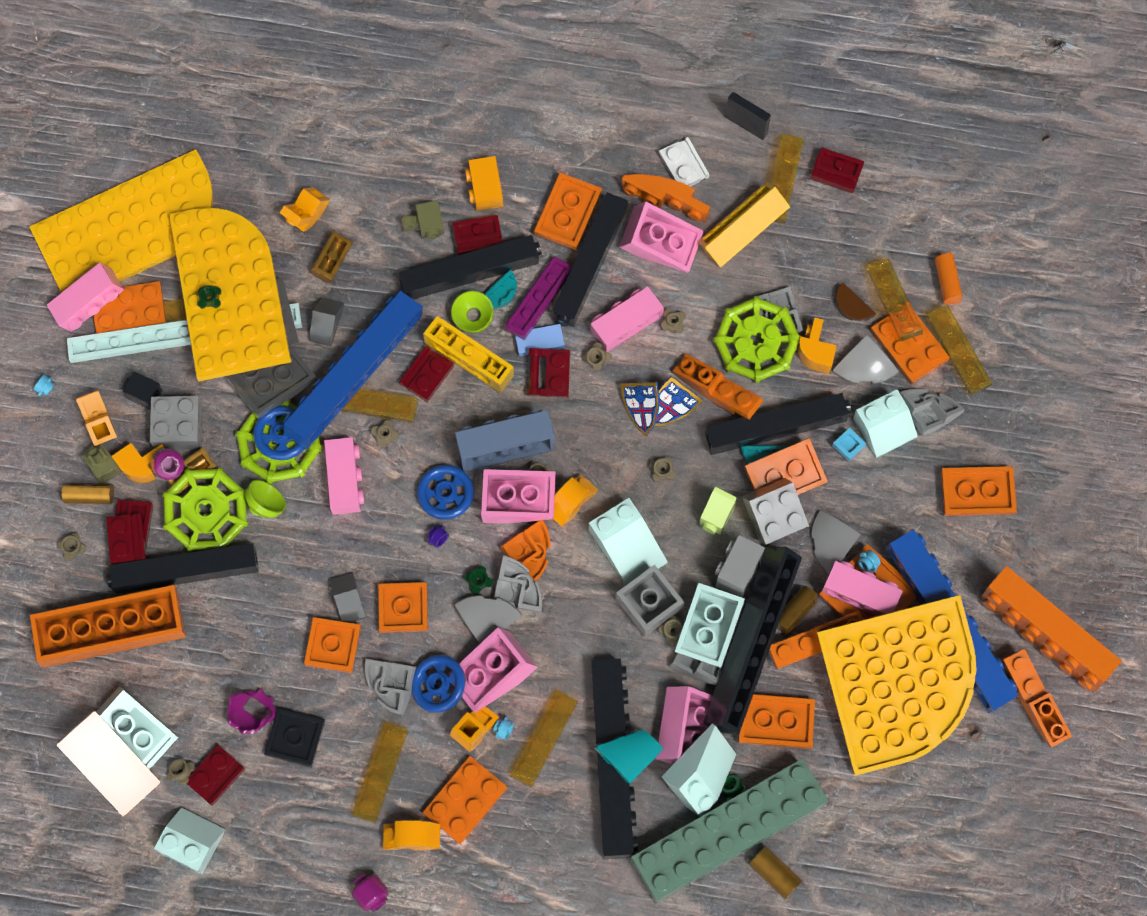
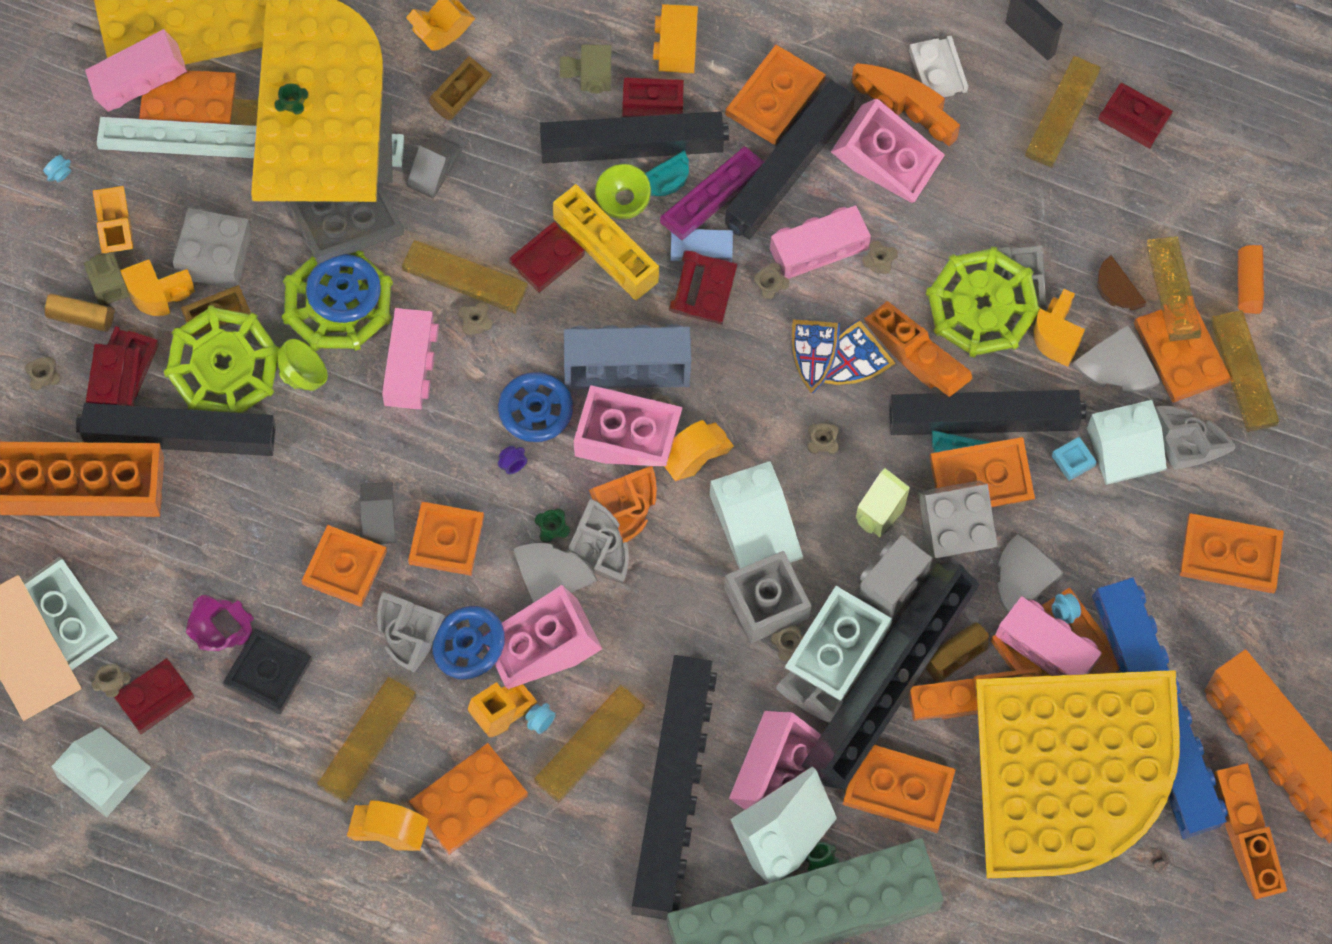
camera: 10 degrees right, 5 degrees down
(141, 389) = (176, 196): black brick -> none
(167, 463) = (188, 292): magenta head -> none
(352, 370) = (452, 229): blue brick -> none
(370, 892) = (316, 886): magenta head -> none
(630, 753) = (696, 781): teal slope -> none
(744, 224) = (998, 155): yellow brick -> none

